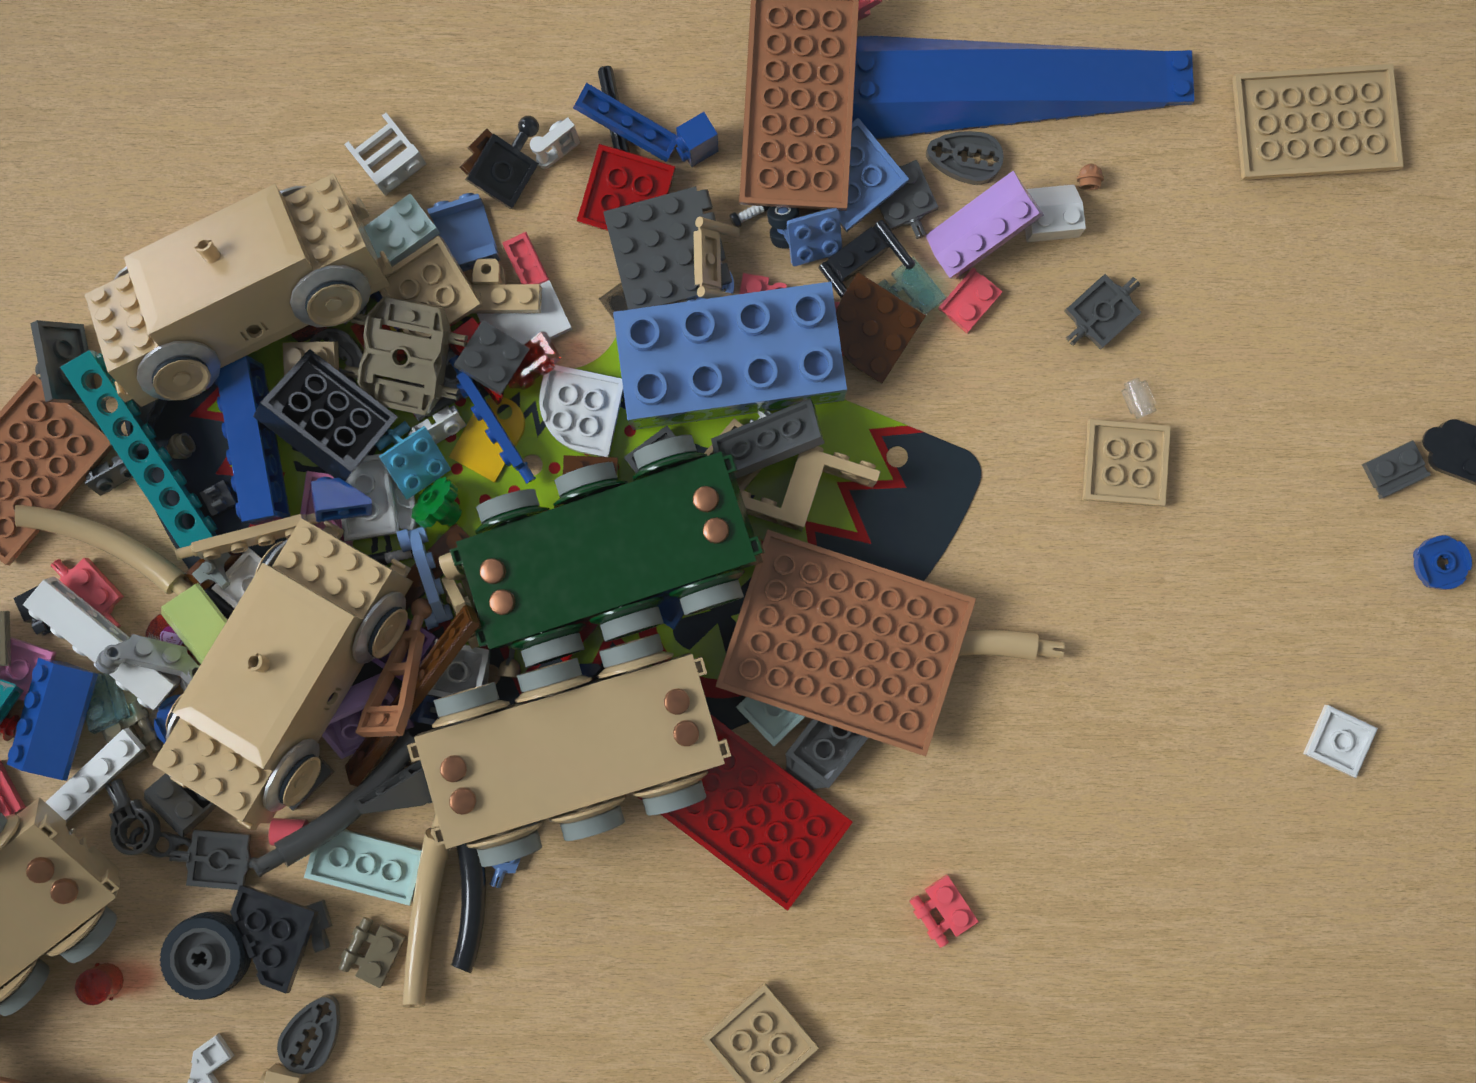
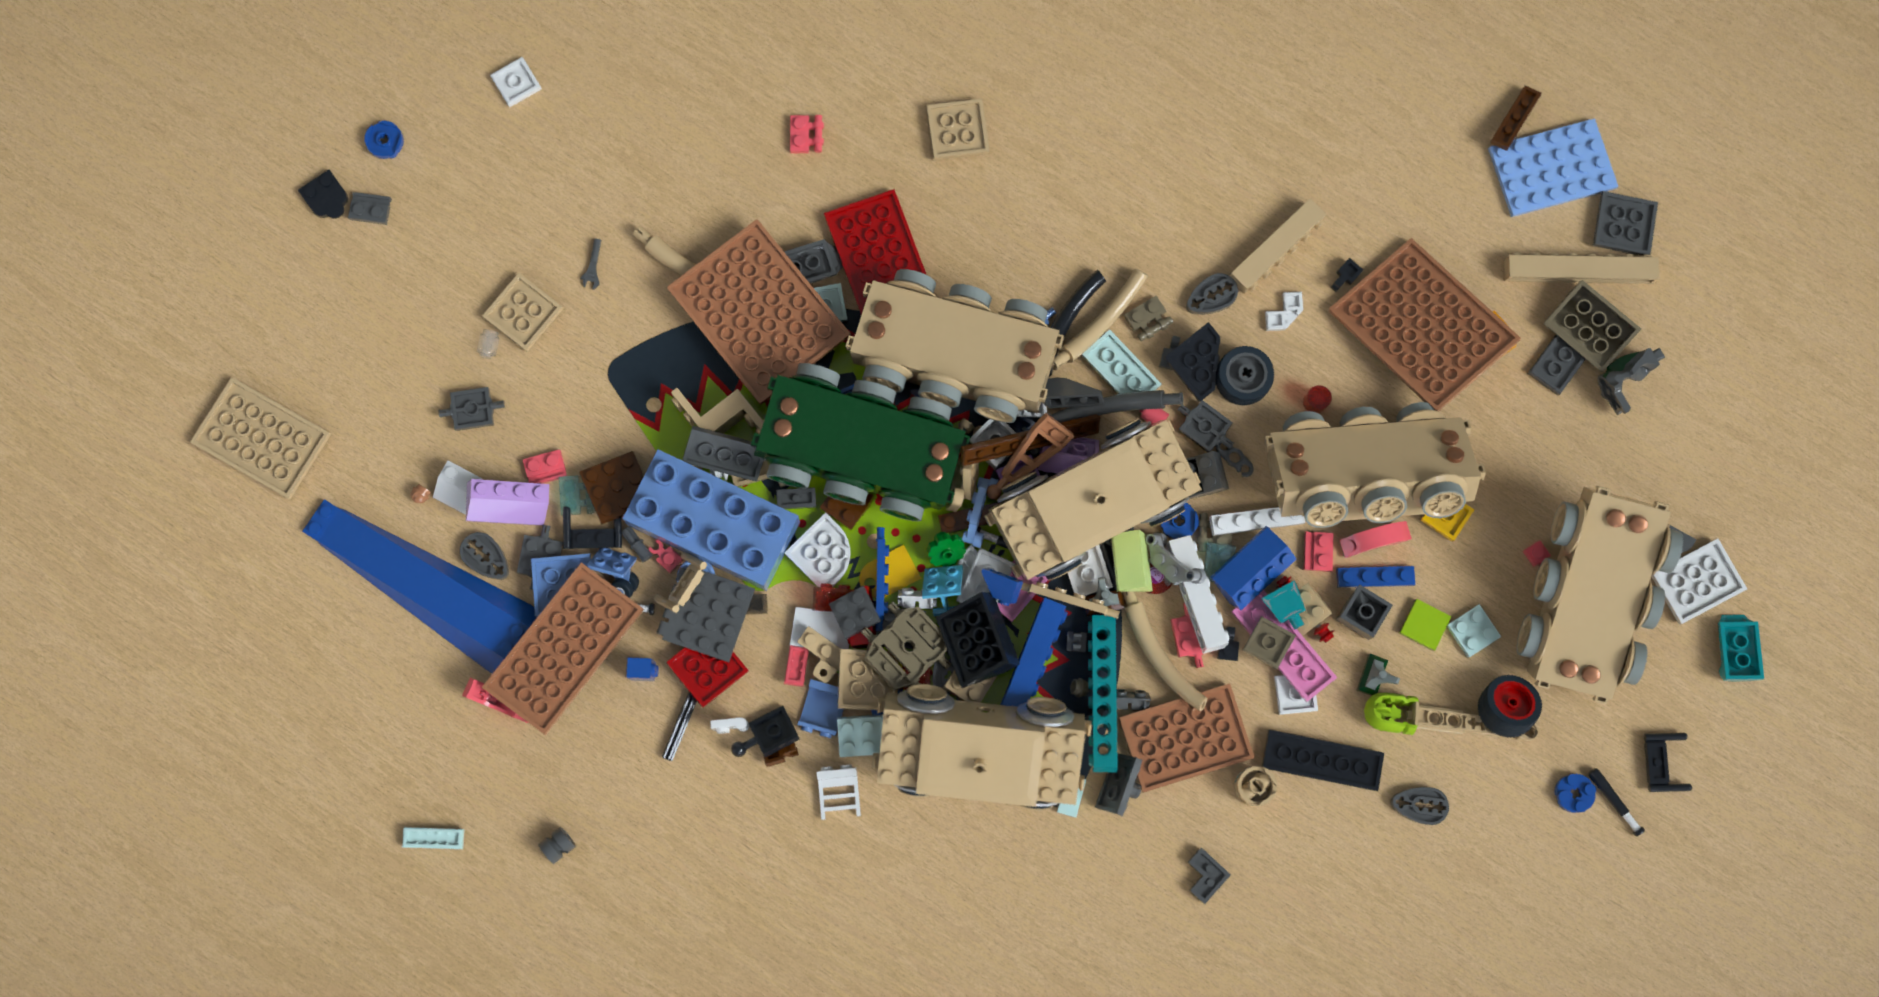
camera: 155 degrees left, 5 degrees down
(124, 814) = (1237, 484): dark grey pin -> none
(625, 122) = (677, 710): blue plate -> none
(796, 278) = (636, 544): none -> dark grey axle
(1079, 563) = (591, 274): none -> dark grey piece

